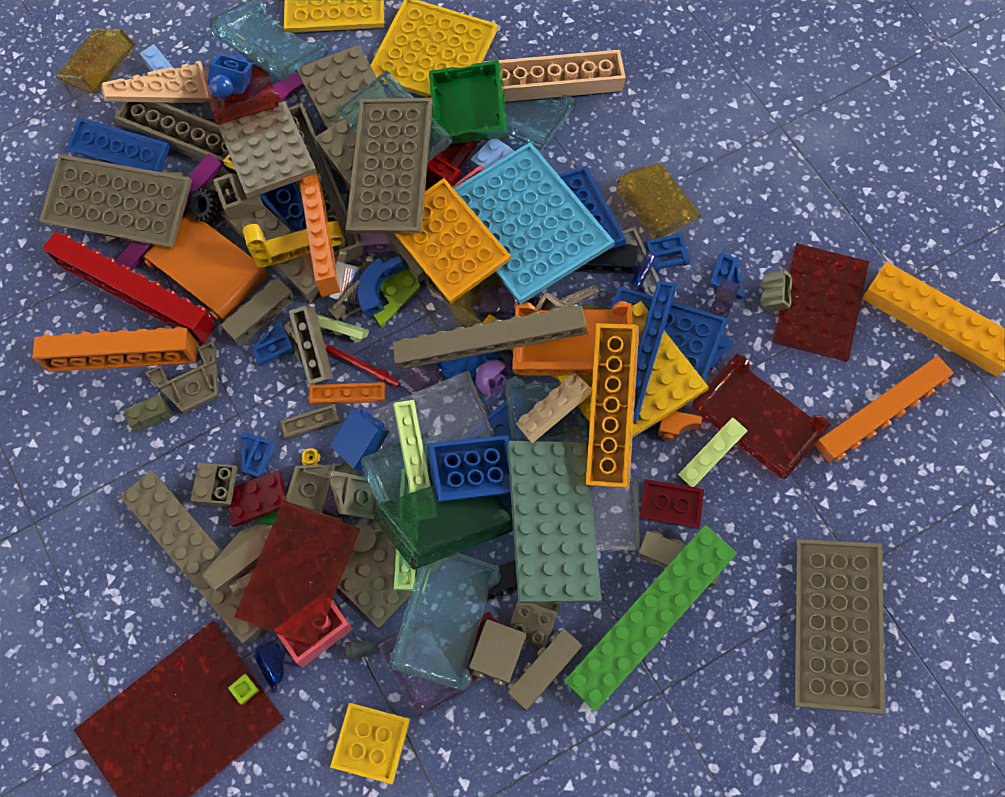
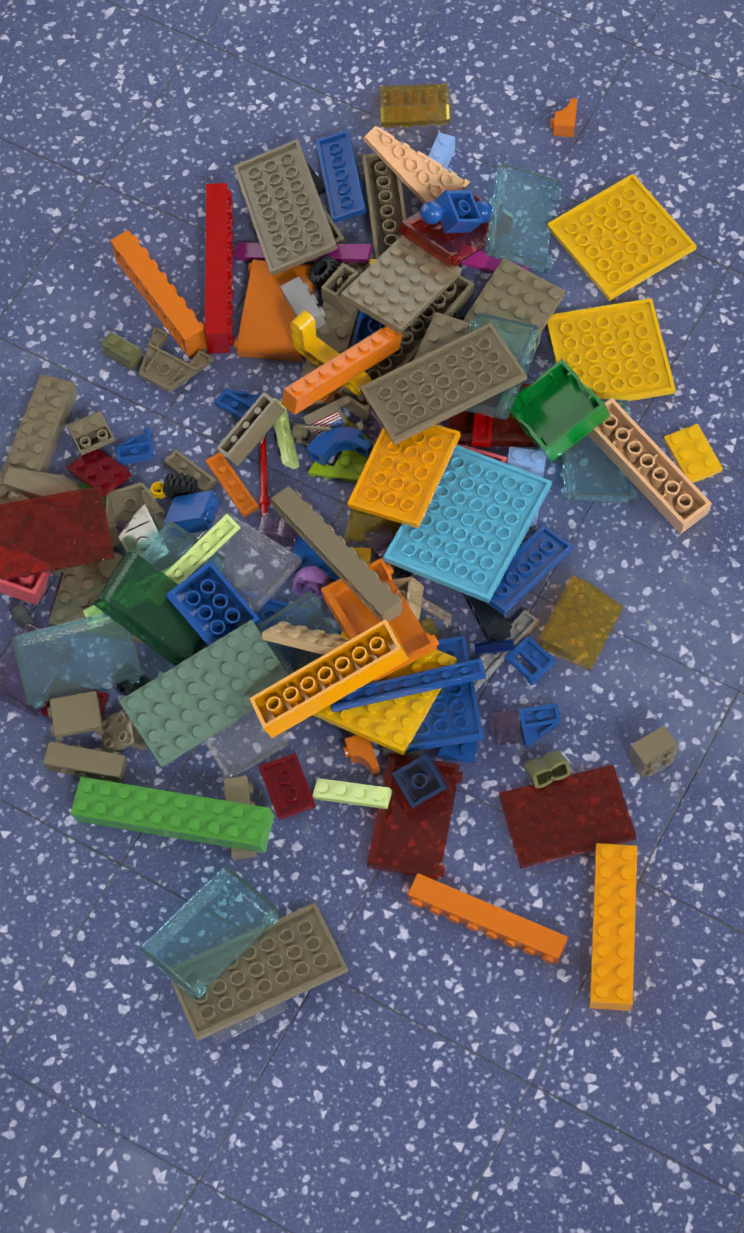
camera: 60 degrees right, 5 degrees down
(220, 237) = (299, 299): none -> light grey brick
(258, 311) = (258, 373): dark tan brick -> none
(323, 435) = (179, 485): none -> black tyre
(557, 42) = (693, 453): none -> yellow plate
(737, 389) = (420, 780): none -> dark blue brick
(783, 646) = (210, 932): none -> clear light blue windscreen
(808, 206) = (653, 752): none -> dark tan brick

